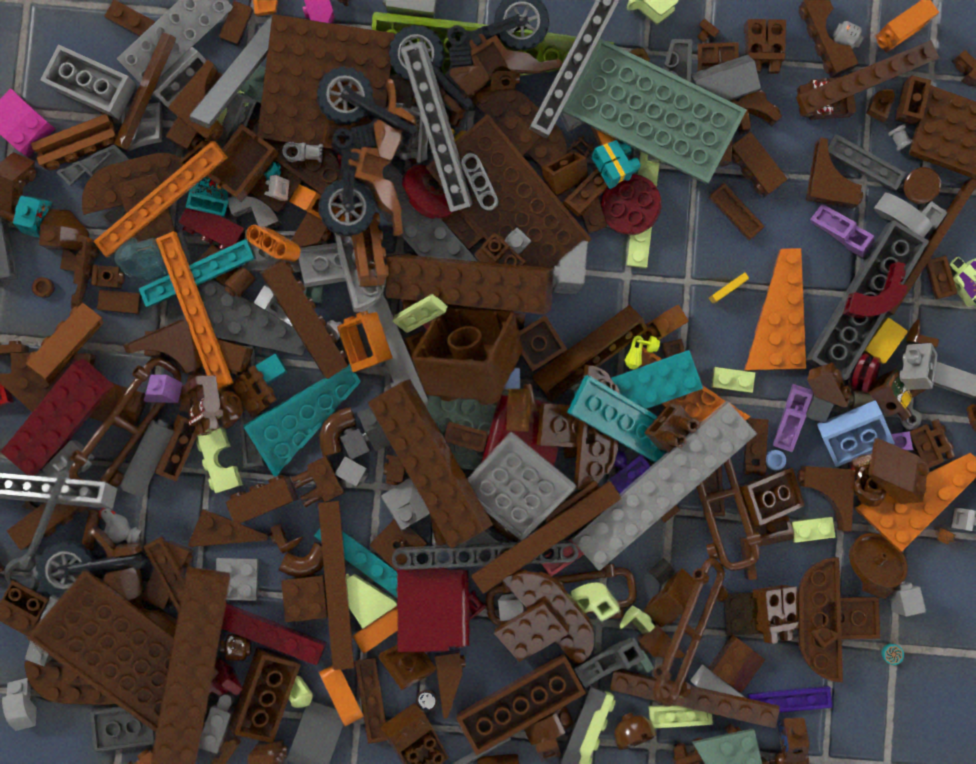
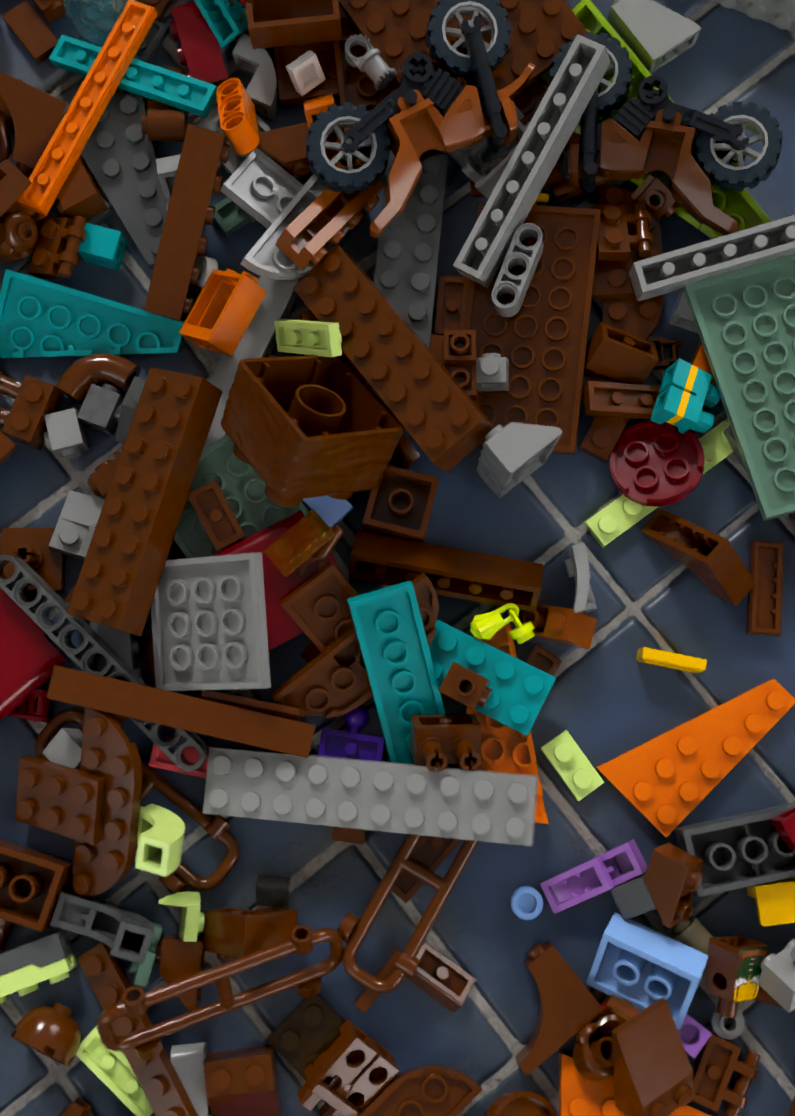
camera: 50 degrees right, 5 degrees down
(274, 169) = (321, 49): teal plate -> none
(425, 193) = (447, 224): dark red tile -> none
(505, 119) = (613, 232): none -> reddish brown plate
(646, 289) = (578, 567): none -> light grey plate
(656, 395) = (466, 687): none -> reddish brown brick
(693, 226) = (704, 553): none -> reddish brown arch
(756, 447) = (520, 865): reddish brown plate -> none
(771, 496) = (479, 938): reddish brown slope -> none
(813, 529) = (487, 1026): yellowish green plate -> none
(866, 372) = (729, 913): dark red head -> none

